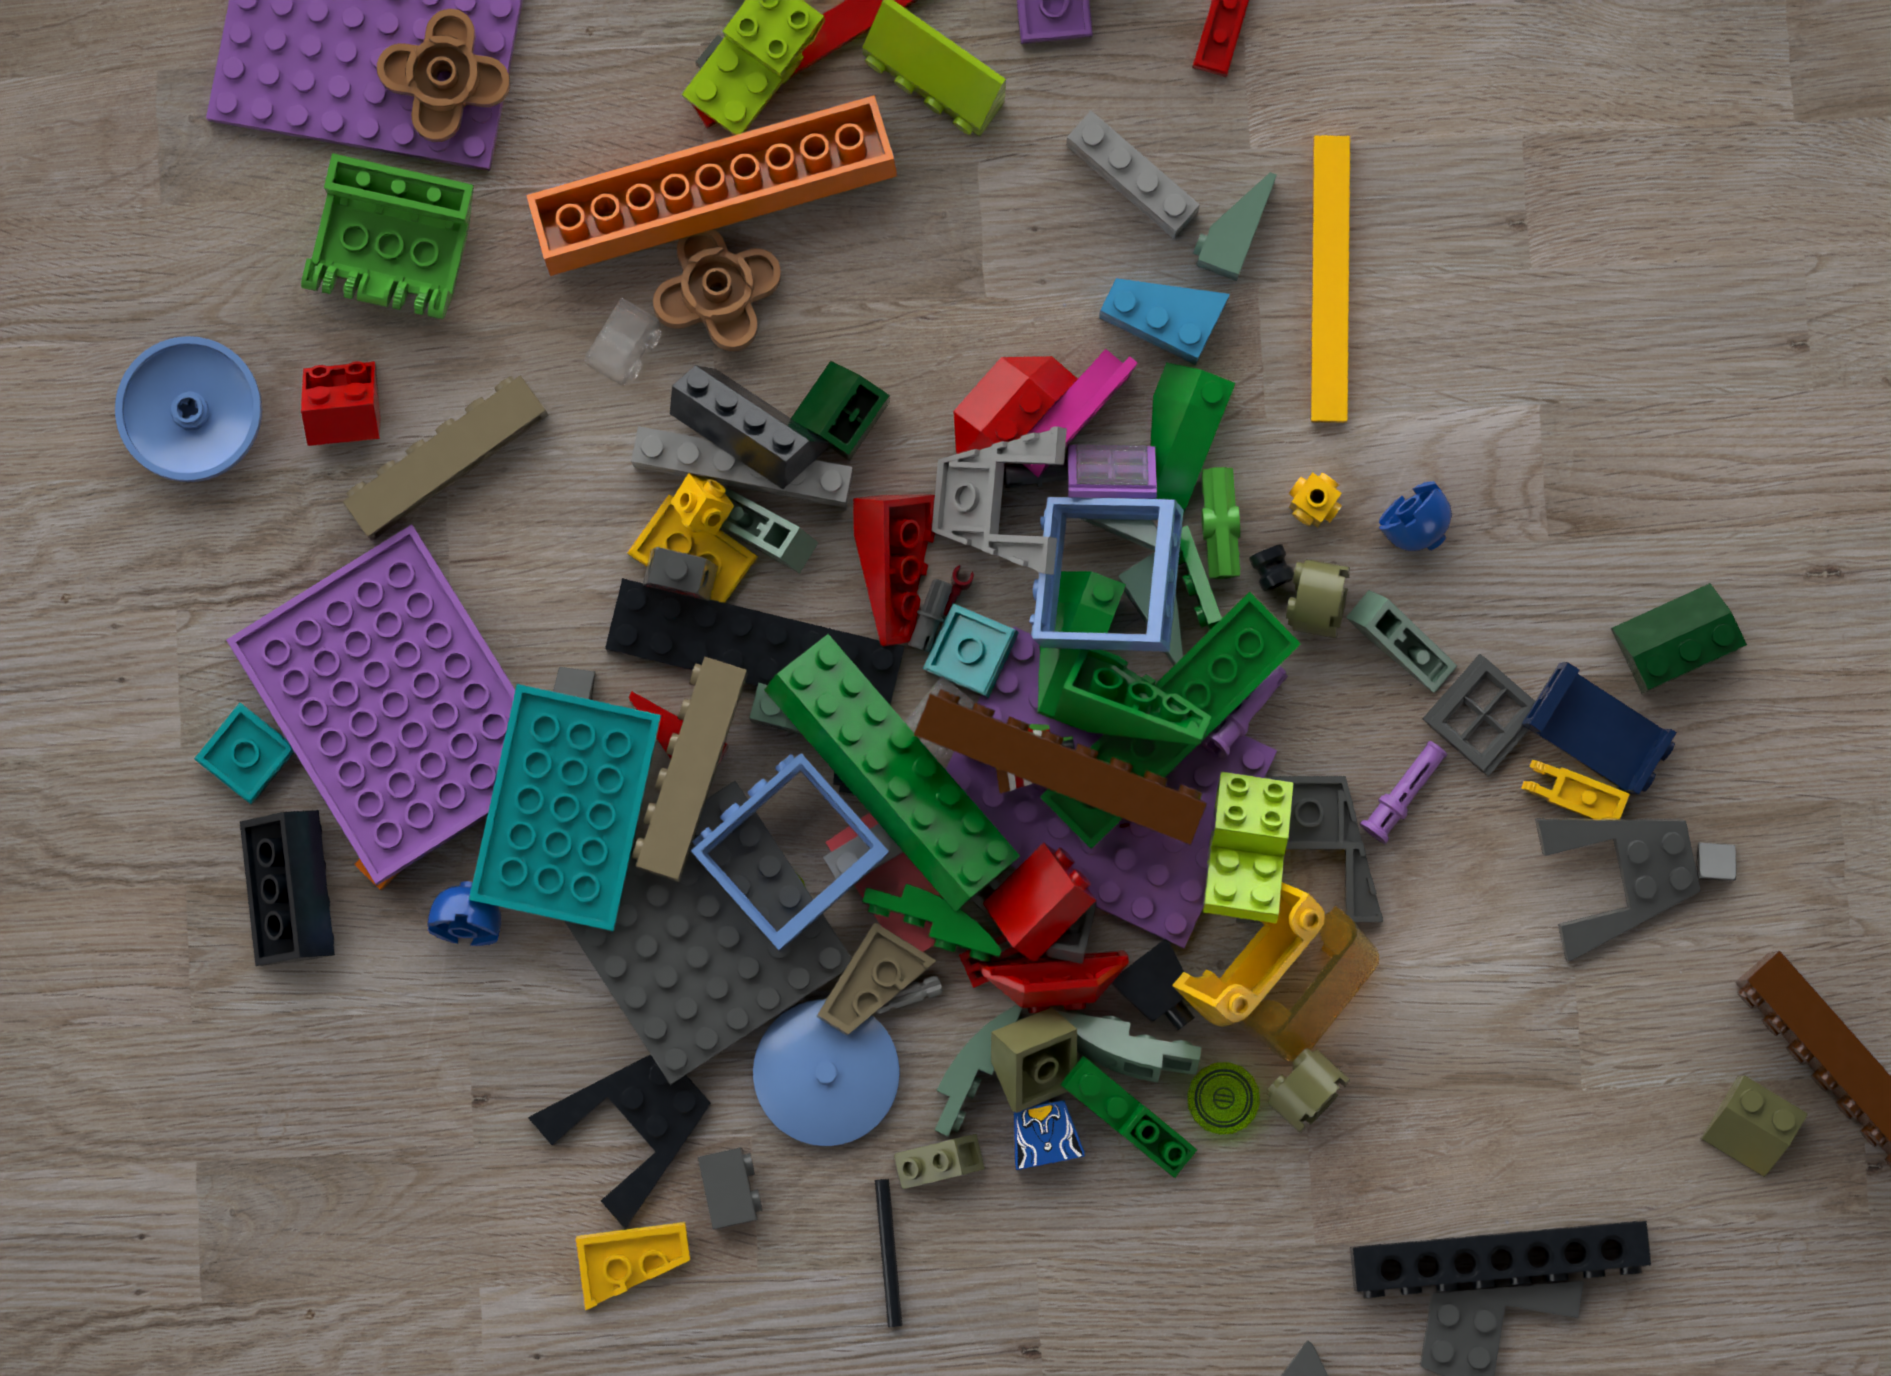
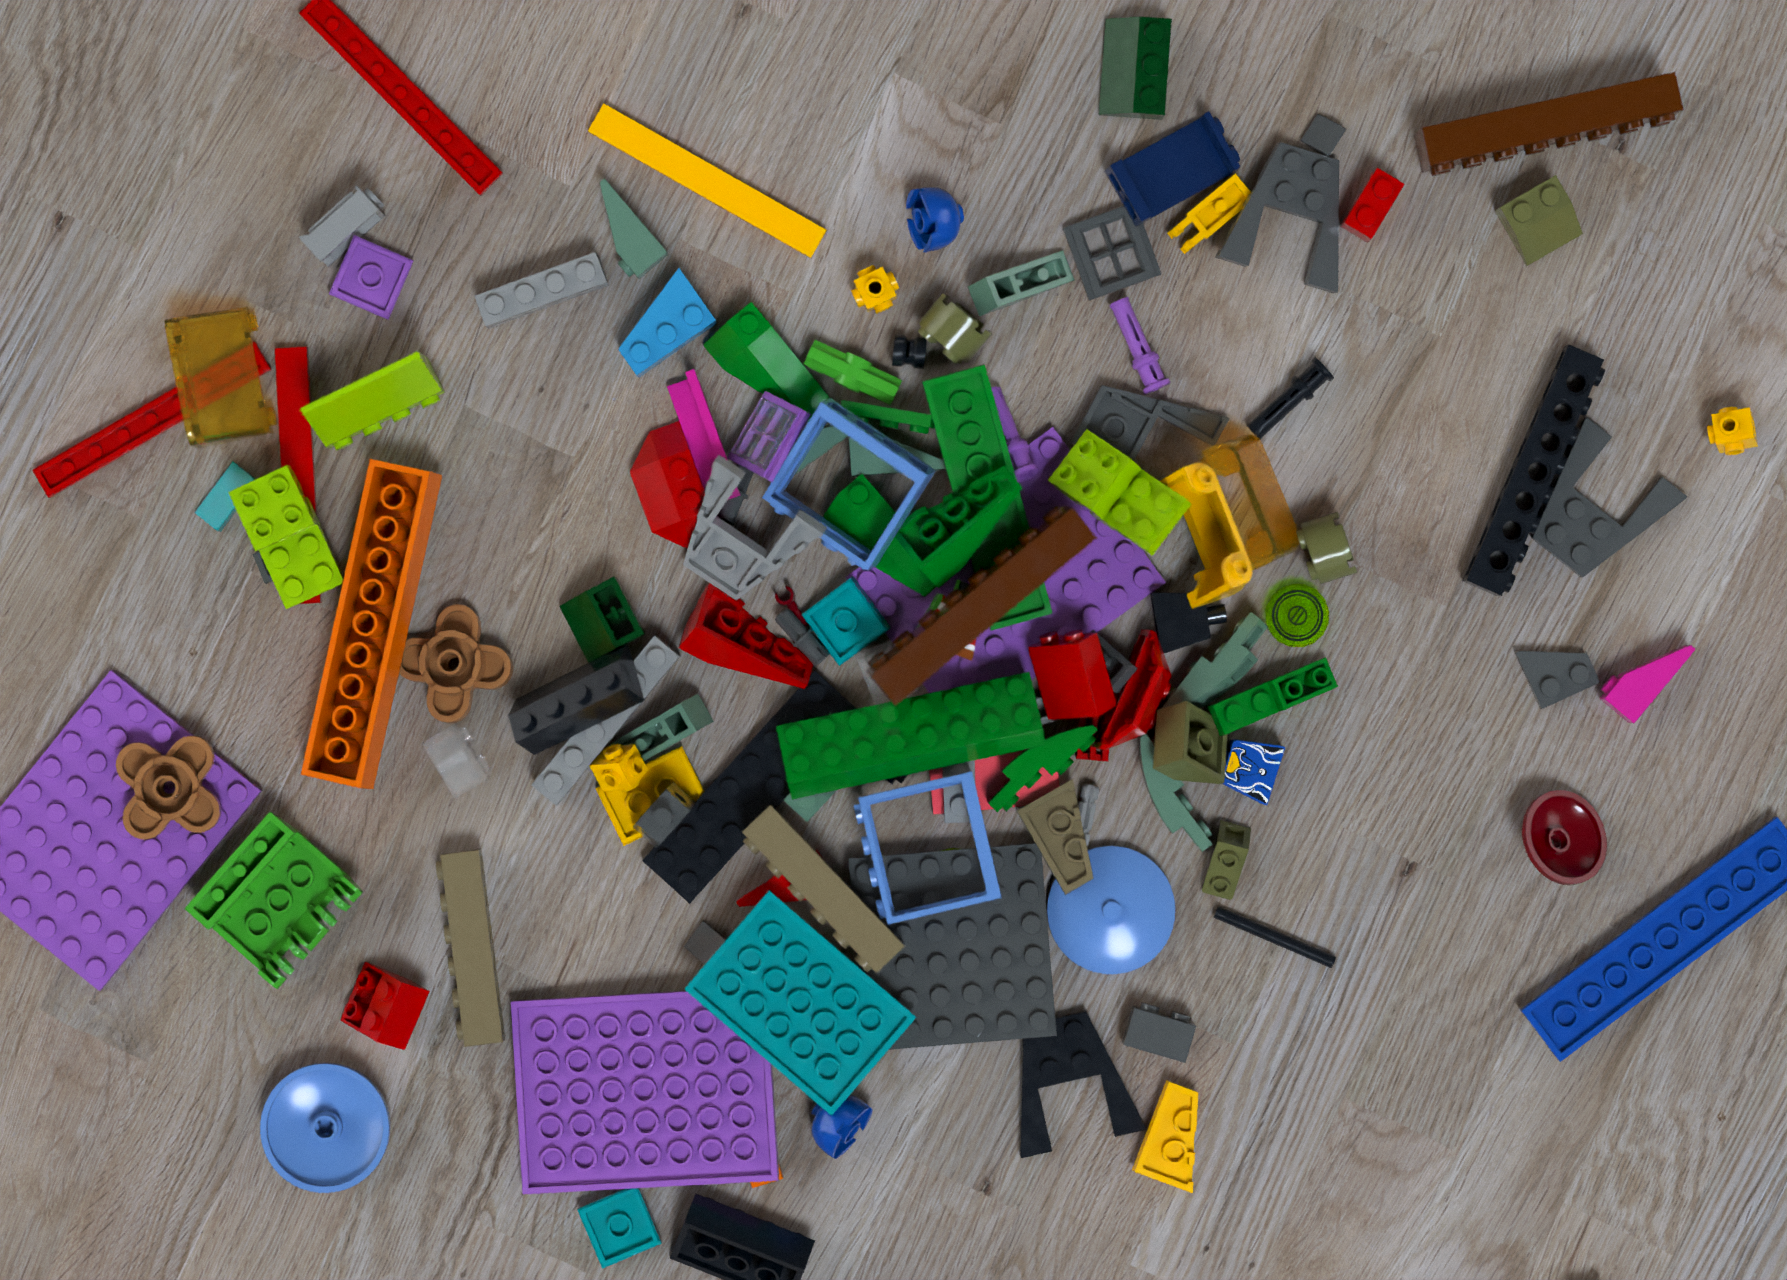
camera: 60 degrees left, 5 degrees up
(1452, 977) = (1301, 388): none -> black pin
(1674, 947) = (1372, 205): none -> red brick

